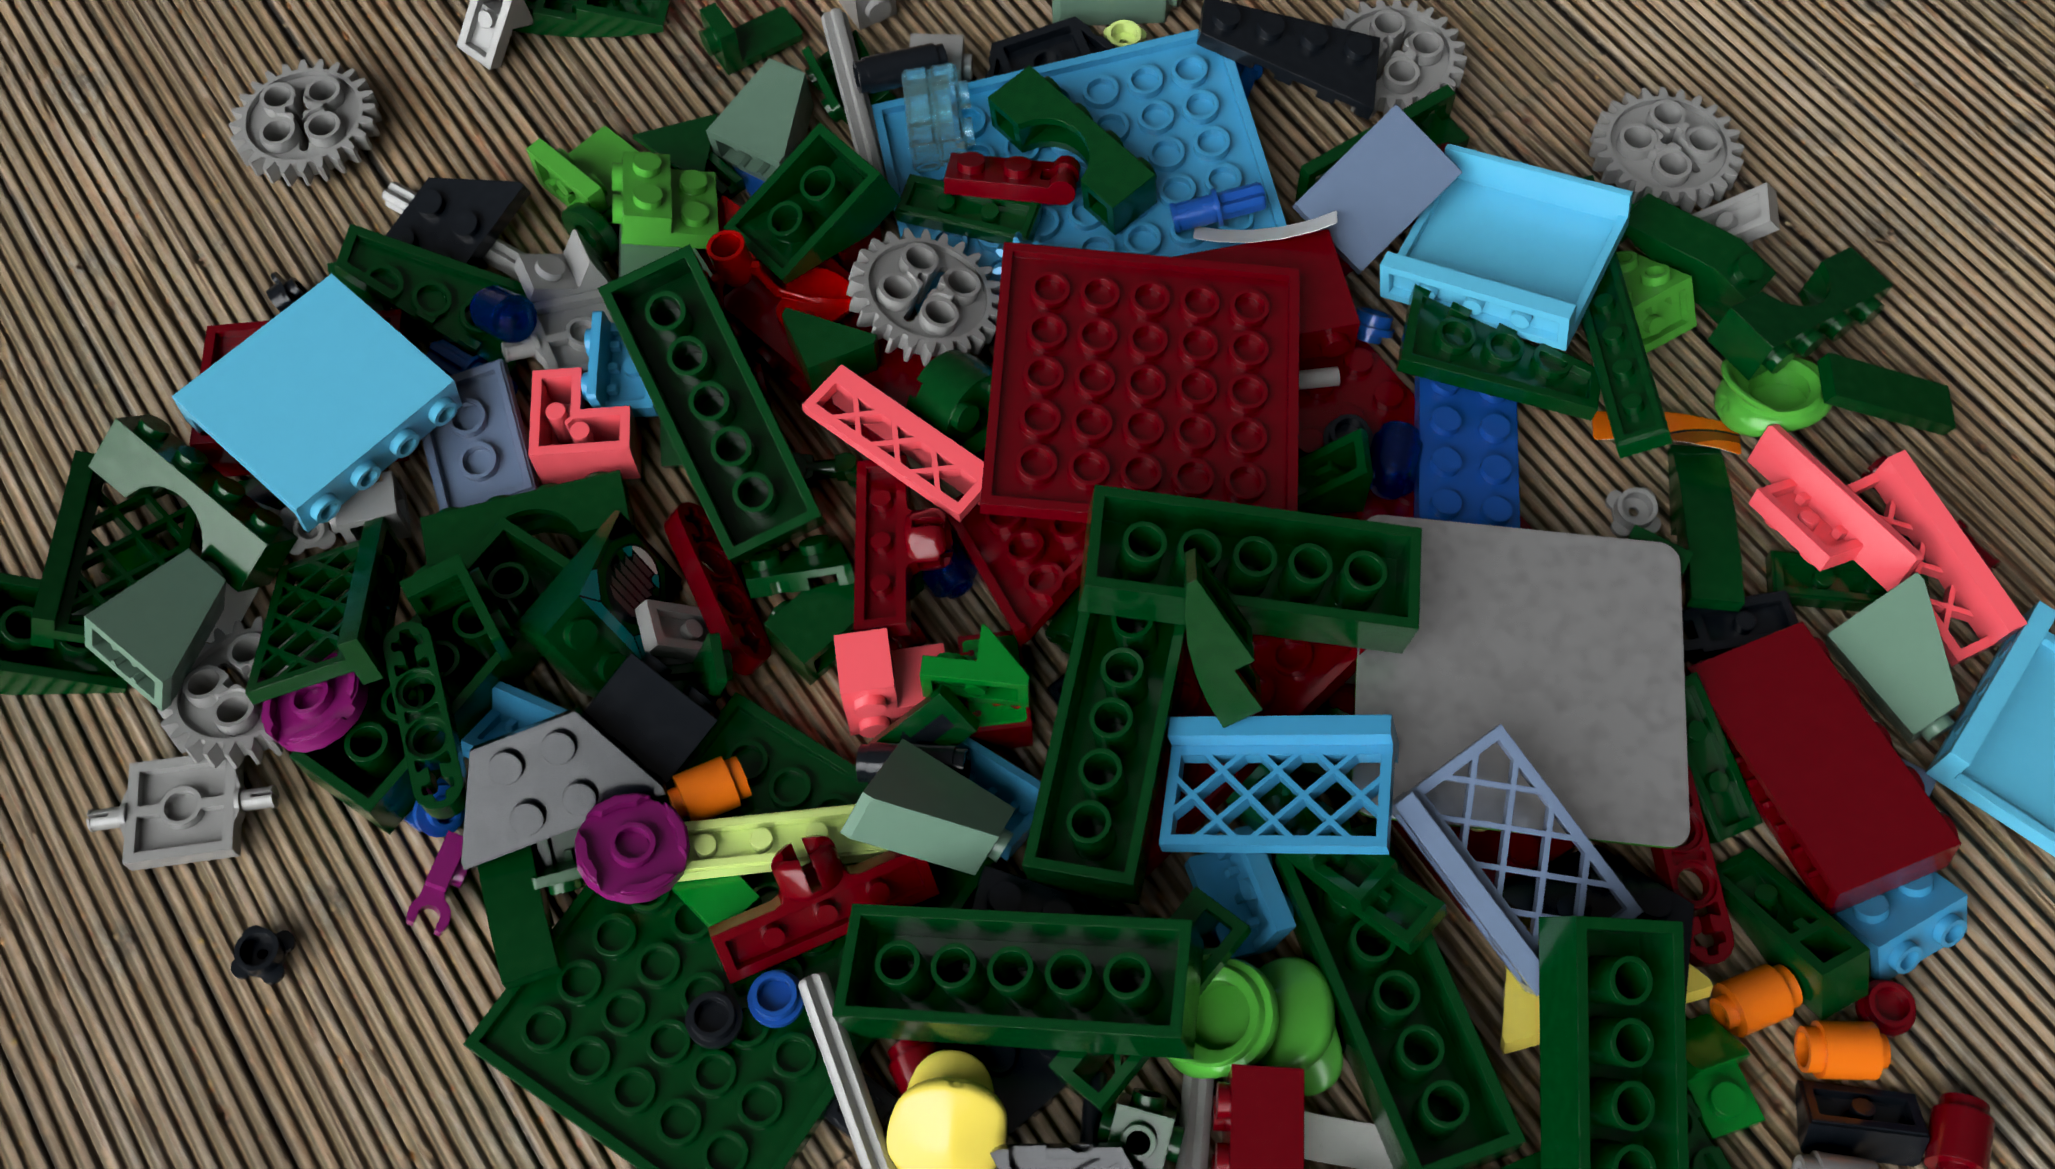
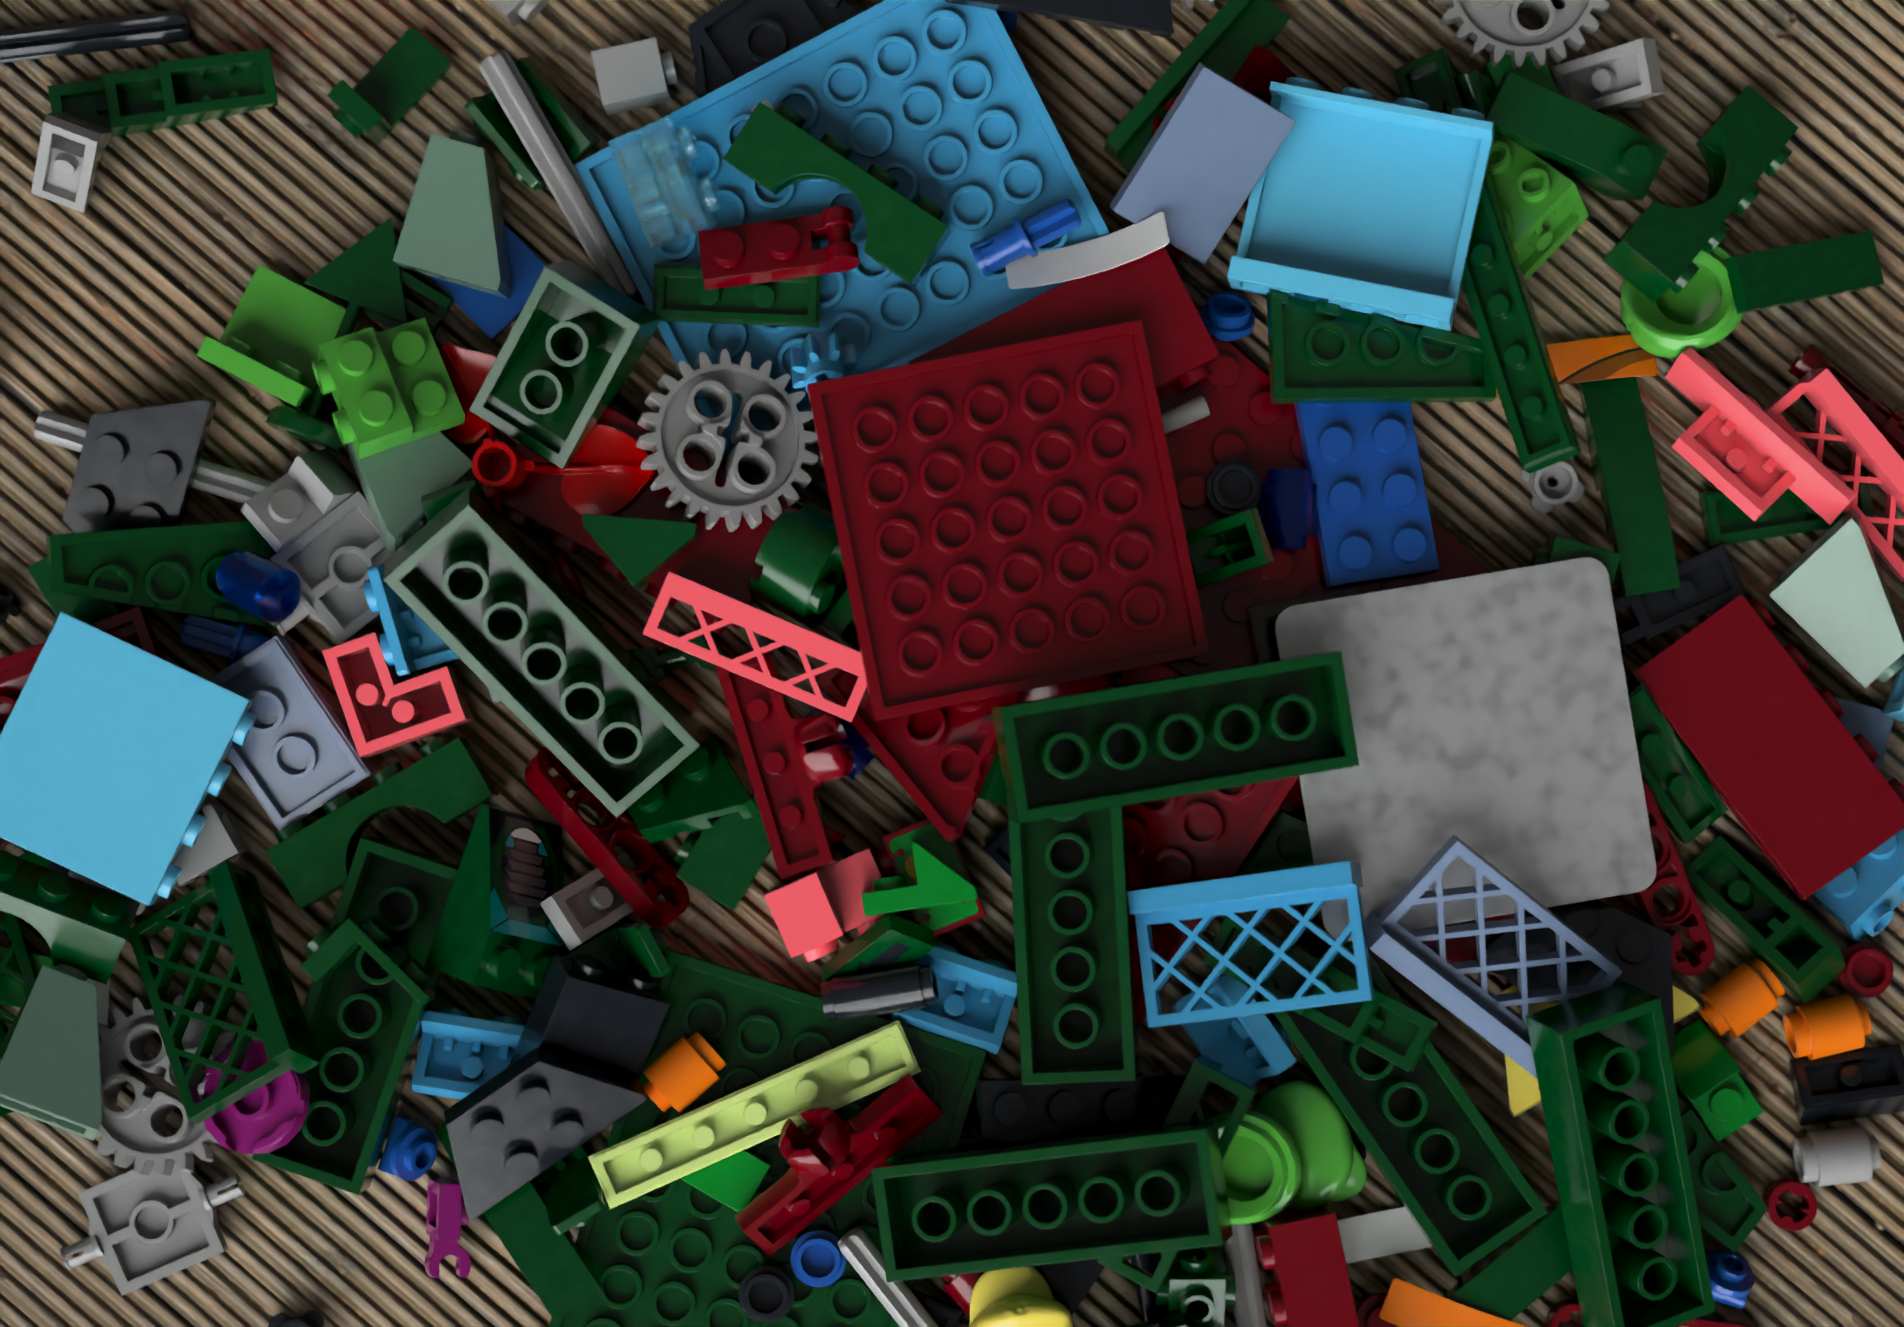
camera: 20 degrees left, 25 degrees up
(422, 719) = (370, 1093): dark green beam -> none
(632, 848) = (638, 1169): magenta tile -> none
(884, 70) = (600, 122): black piece -> none
(930, 813) = (915, 1054): sand green slope -> none
(1219, 644) = (1167, 839): dark green slope -> none

